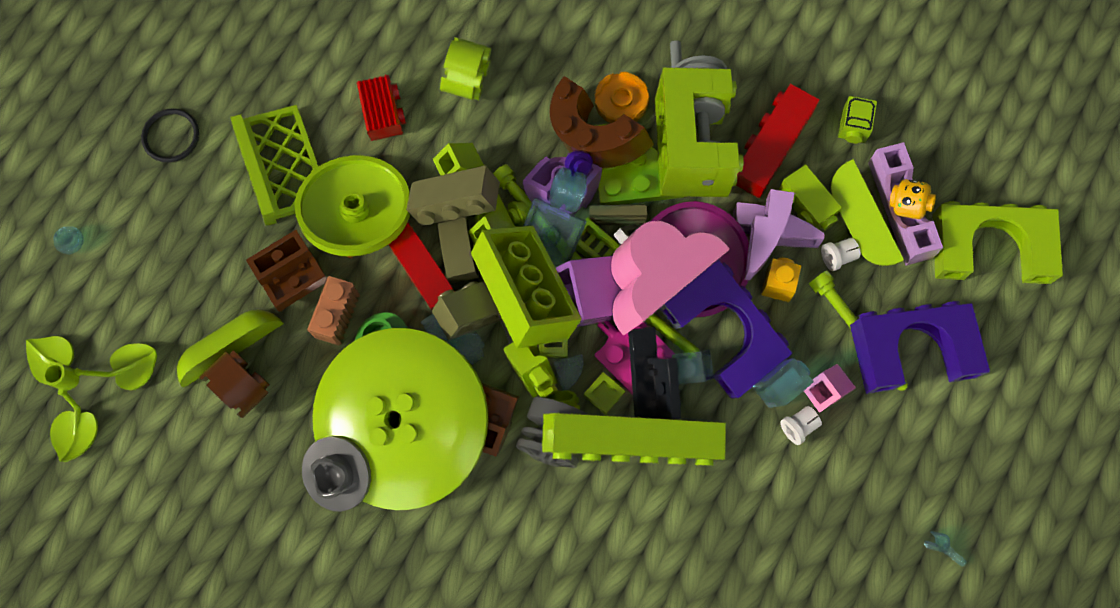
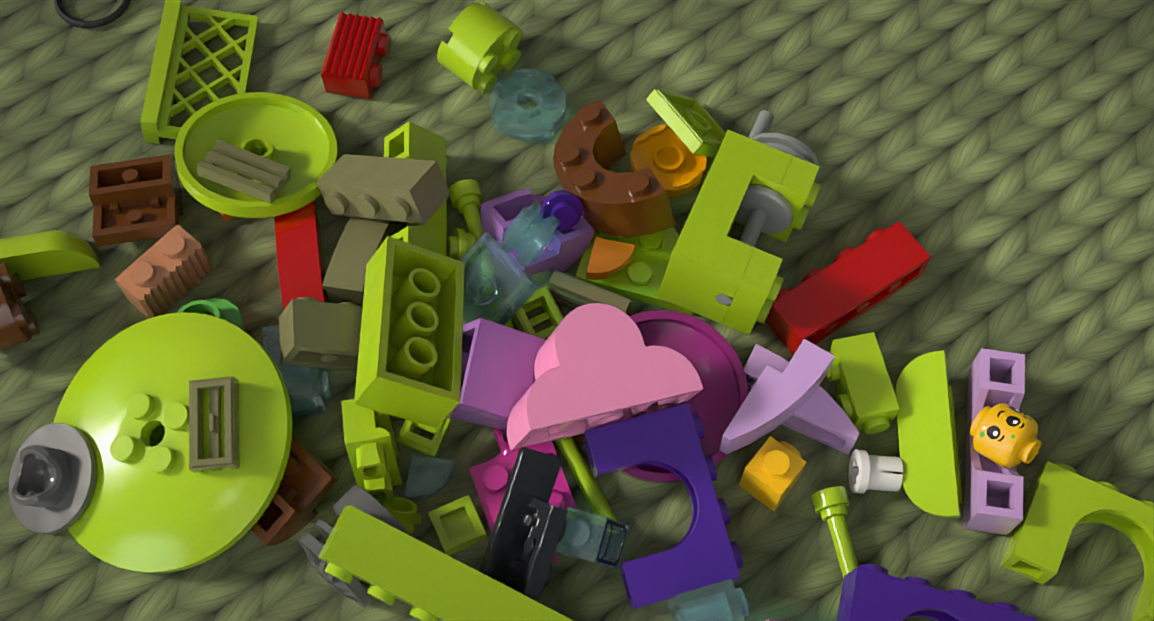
camera: 20 degrees right, 10 degrees down
(357, 218) = (248, 167): none -> olive tile
(443, 391) = (231, 410): none -> olive tile
(513, 111) = (533, 123): none -> clear light blue plate
(618, 182) = (608, 258): none -> orange tile
(630, 69) = (688, 122): none -> lime plate
(857, 119) = (975, 305): lime brick -> none

